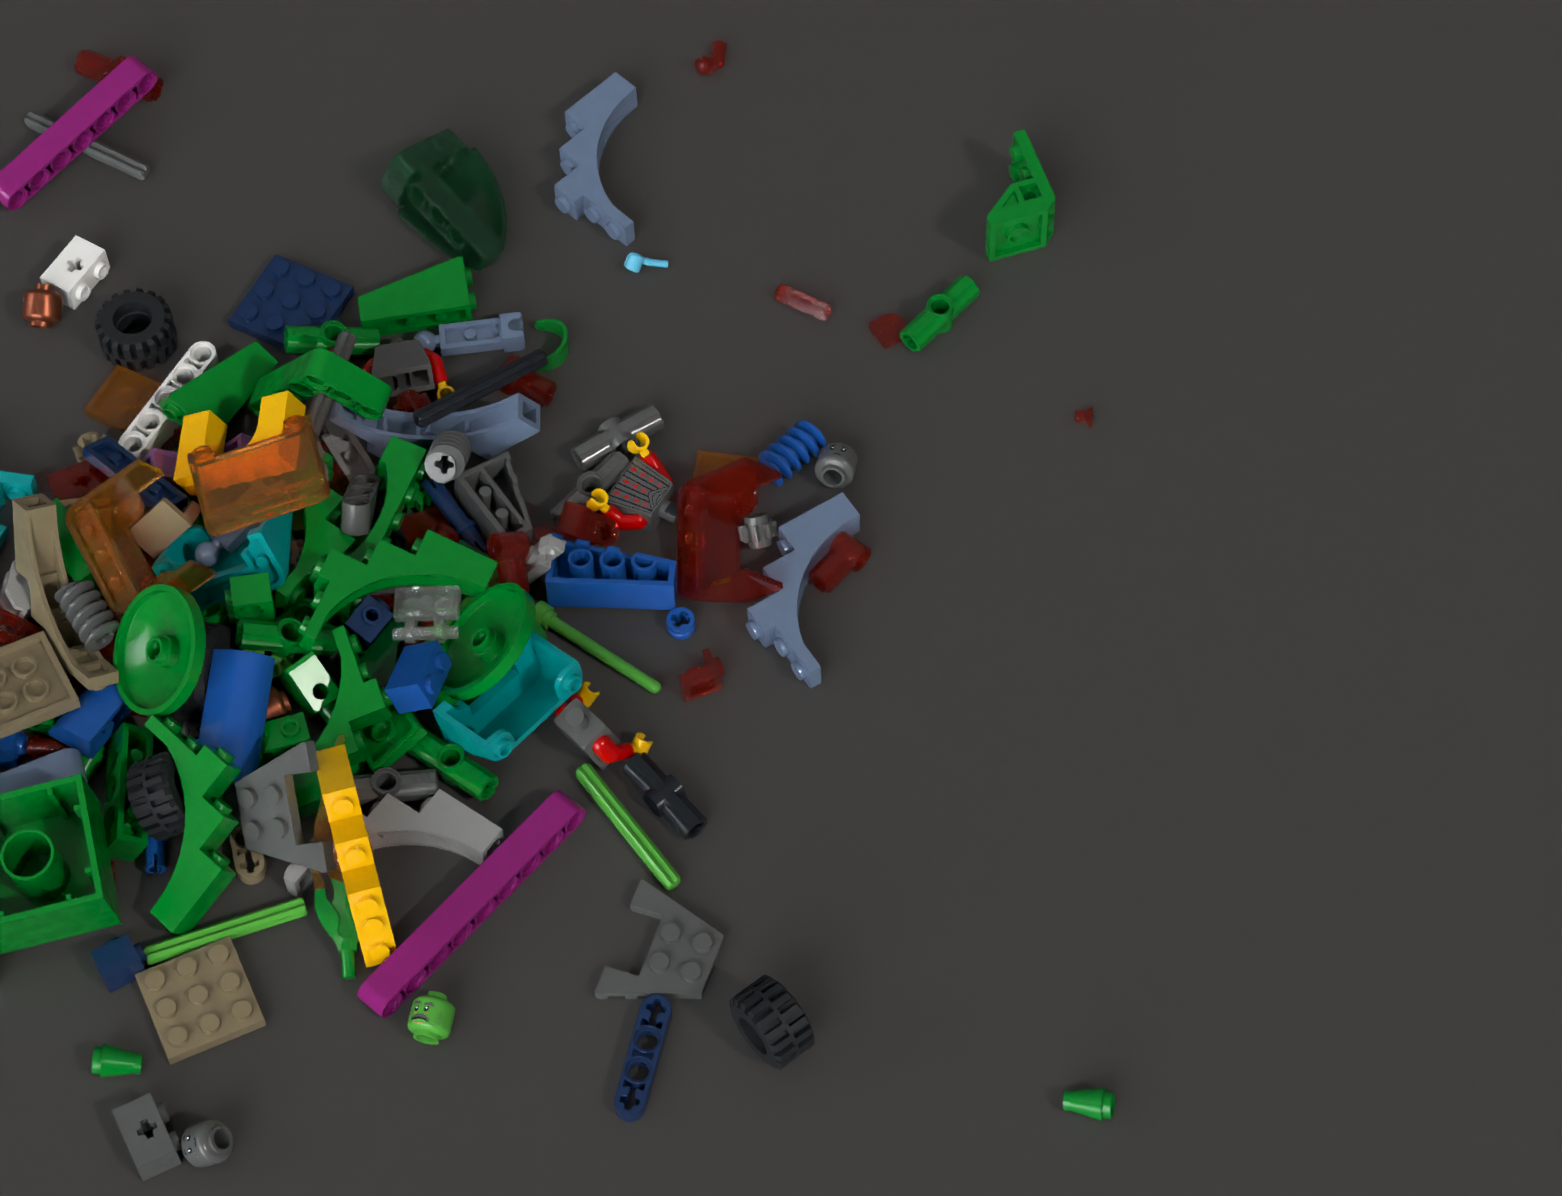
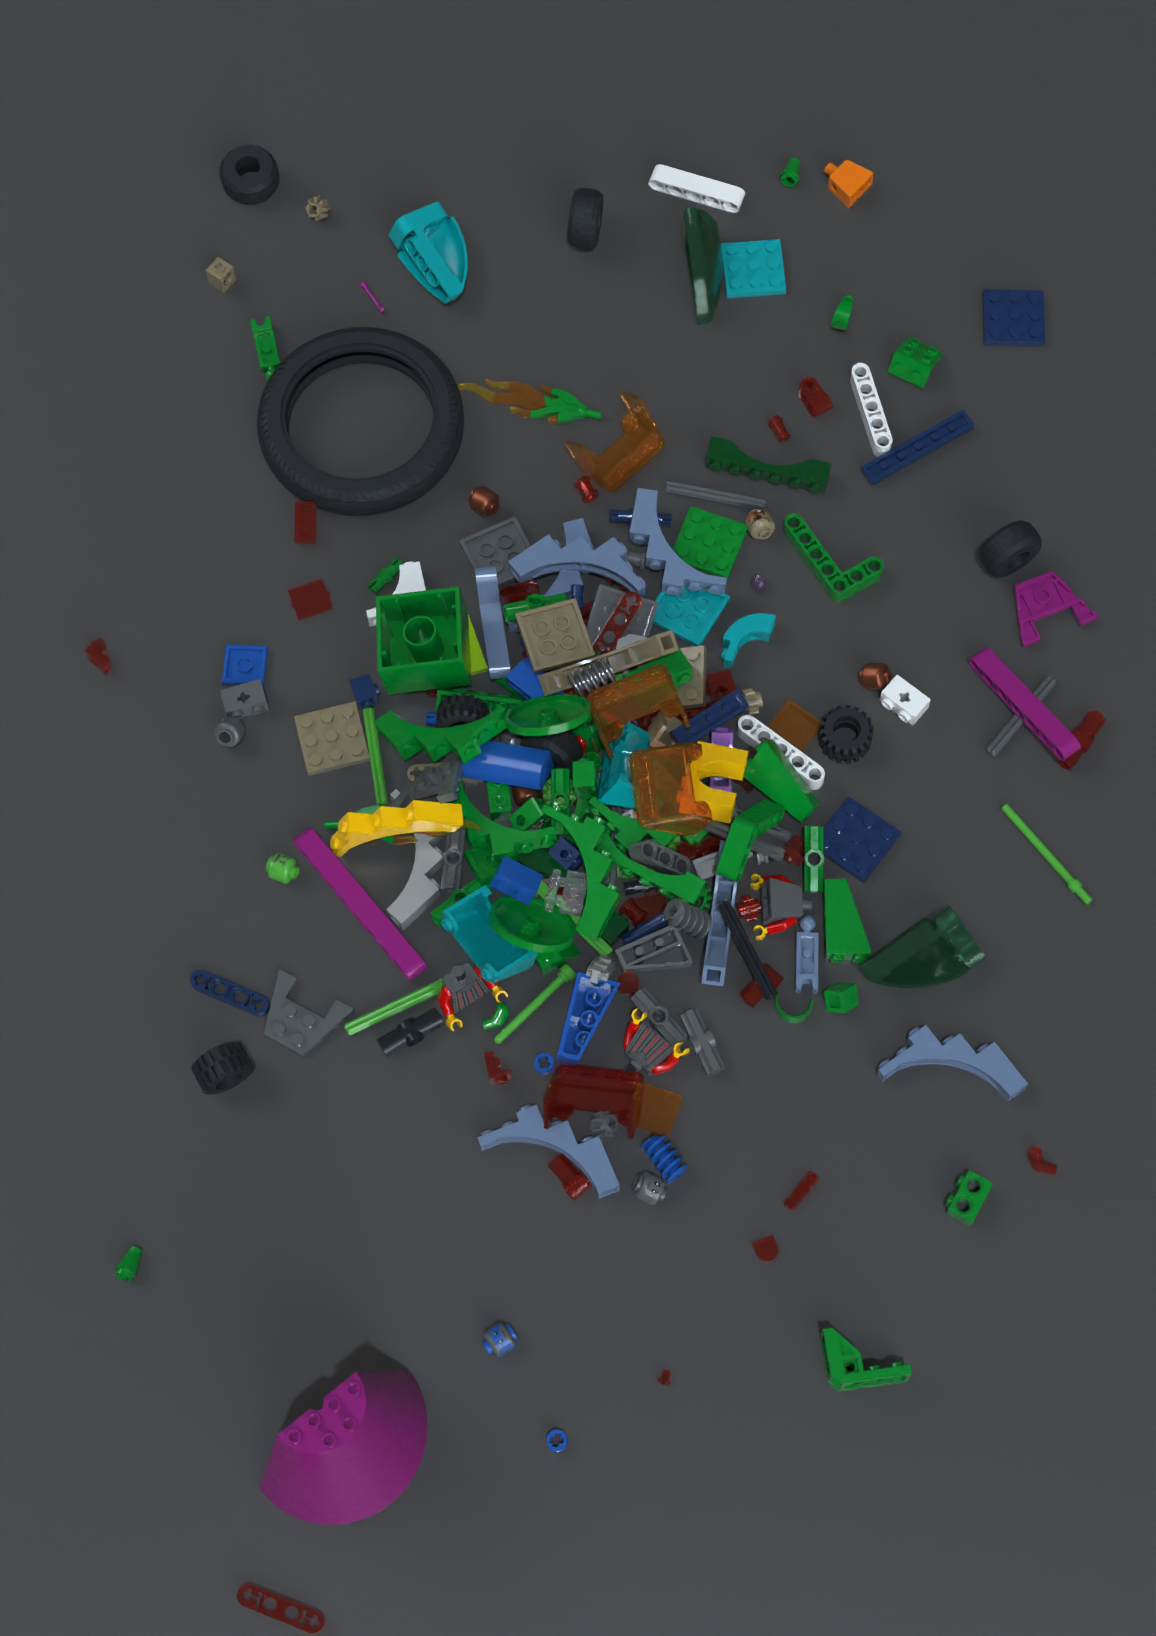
camera: 100 degrees right, 10 degrees up
(82, 1156) = (244, 664): none -> blue tile
(115, 1061) = (299, 684): green cone -> none
(327, 65) = (1074, 885): none -> bright green bar
(510, 552) = (600, 949): clear red piece -> none
(526, 290) = (841, 997): none -> green panel
(583, 523) = (622, 1005): clear red piece -> none
(626, 690) = (498, 1019): none -> green arm
(634, 262) = (857, 1078): medium azure hand -> none
(776, 122) = (972, 1199): none -> green brick
(930, 323) = (780, 1298): green piece -> none
(1083, 607) = (499, 1339): none -> head
(1206, 517) = (561, 1446): none -> blue bush
(1303, 673) = (351, 1452): none -> magenta cone
(1513, 804) = (281, 1608): none -> clear red beam

